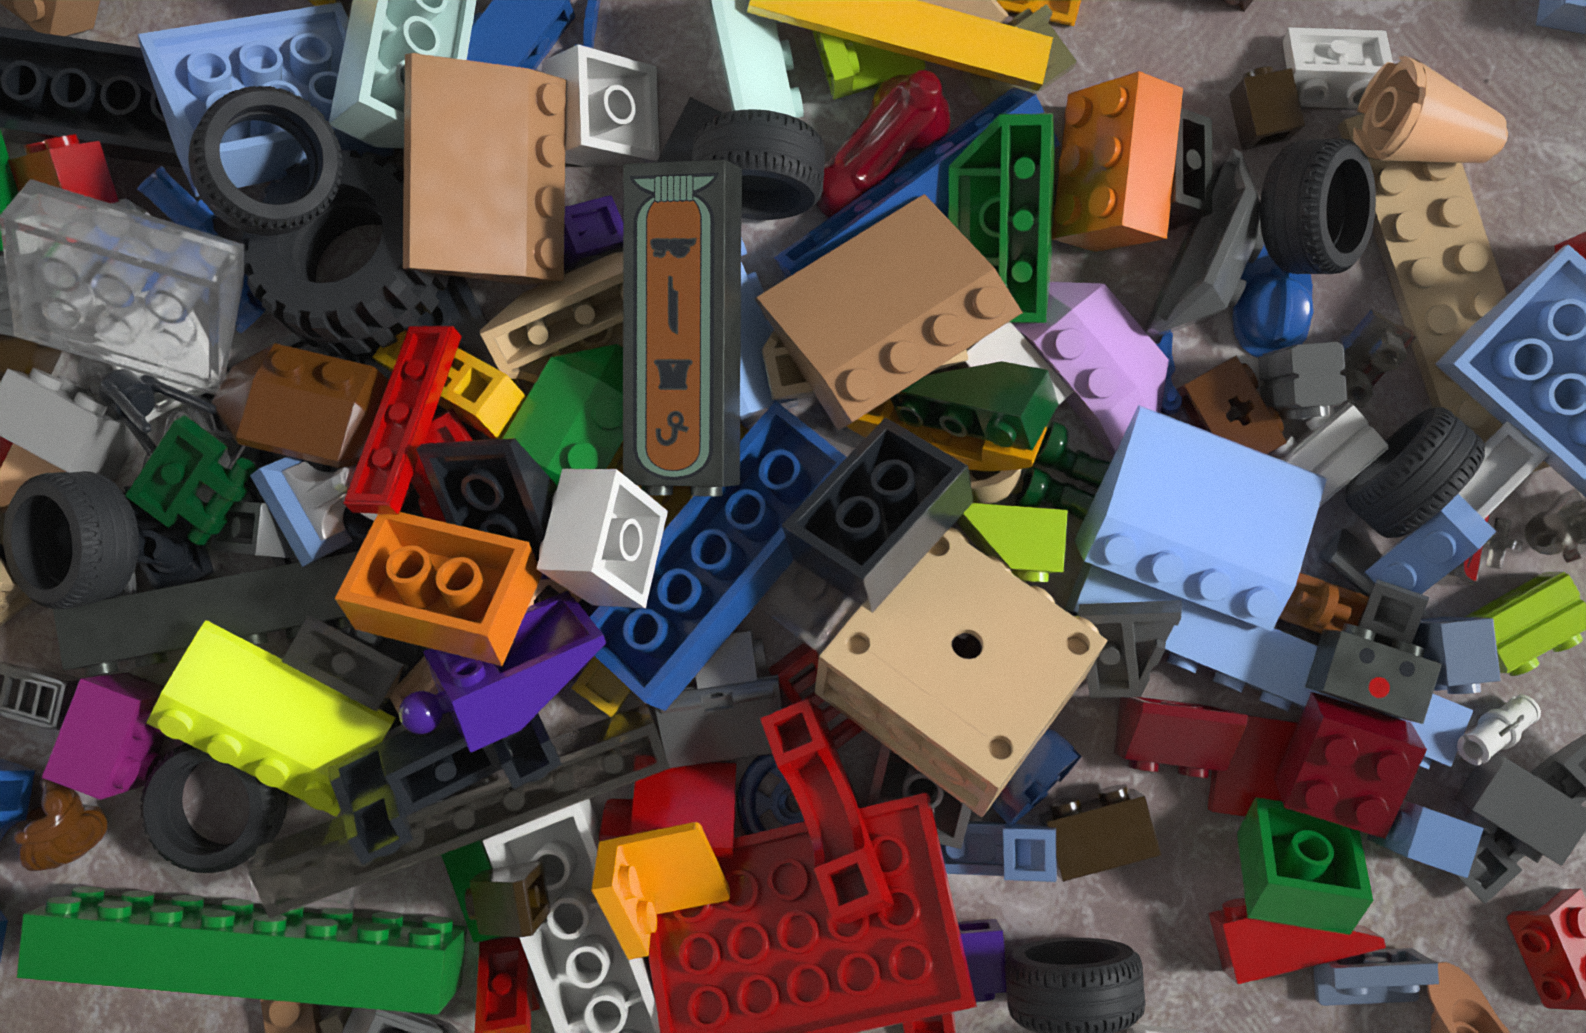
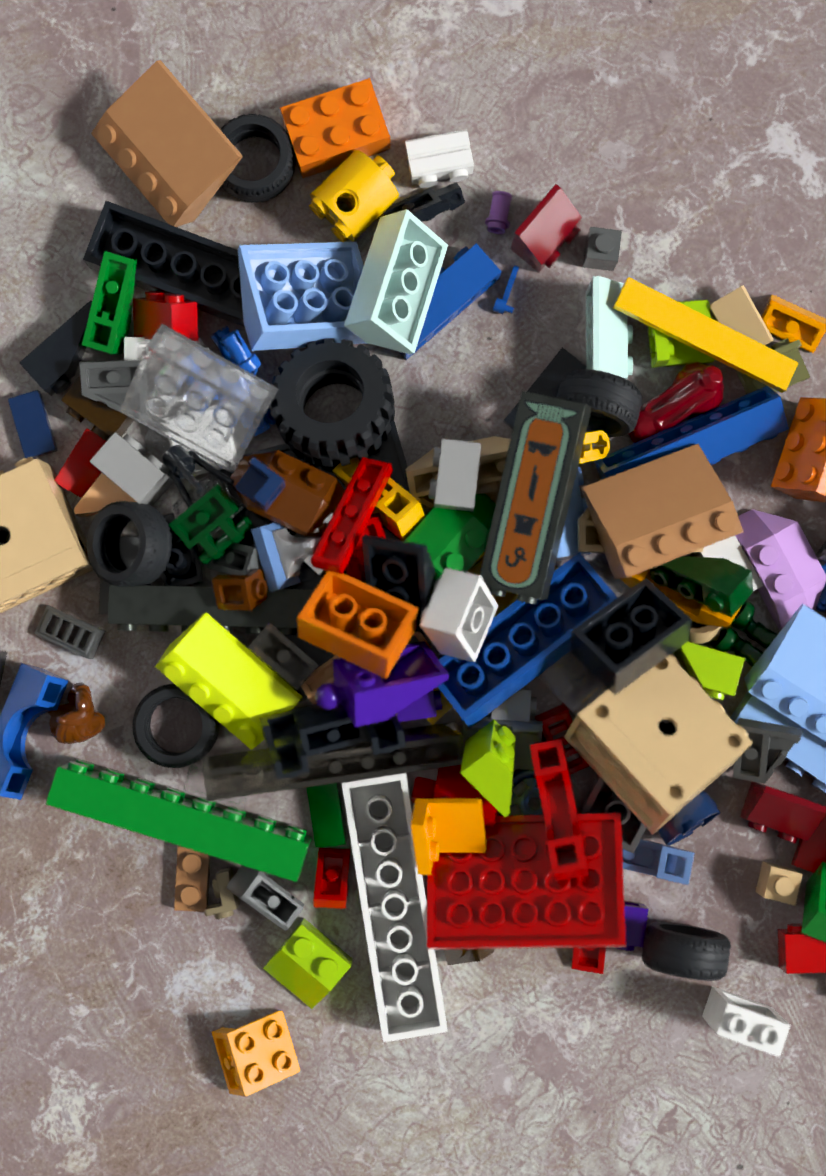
camera: 10 degrees right, 0 degrees up
(106, 736) = (125, 670): magenta brick -> none
(247, 401) = (260, 484): none -> dark blue panel
(254, 574) = (240, 591): none -> reddish brown bracket
(295, 117) = (336, 343): black tyre -> none
(483, 170) = (431, 372): medium nougat slope -> none
(509, 900) = (353, 821): dark brown slope -> none
(554, 321) = (456, 475): none -> light grey brick
(583, 693) = (422, 708): none -> dark purple brick
(591, 230) = (479, 418): dark purple bracket -> none
(607, 107) = (504, 343): white slope -> none
(709, 763) = (490, 764): none -> lime slope
(754, 244) = (600, 448): none -> yellow beam
(1005, 204) = (746, 461): green wedge -> none
(1101, 832) = (722, 862): dark brown brick -> none
(1196, 845) = (779, 883): none -> tan brick

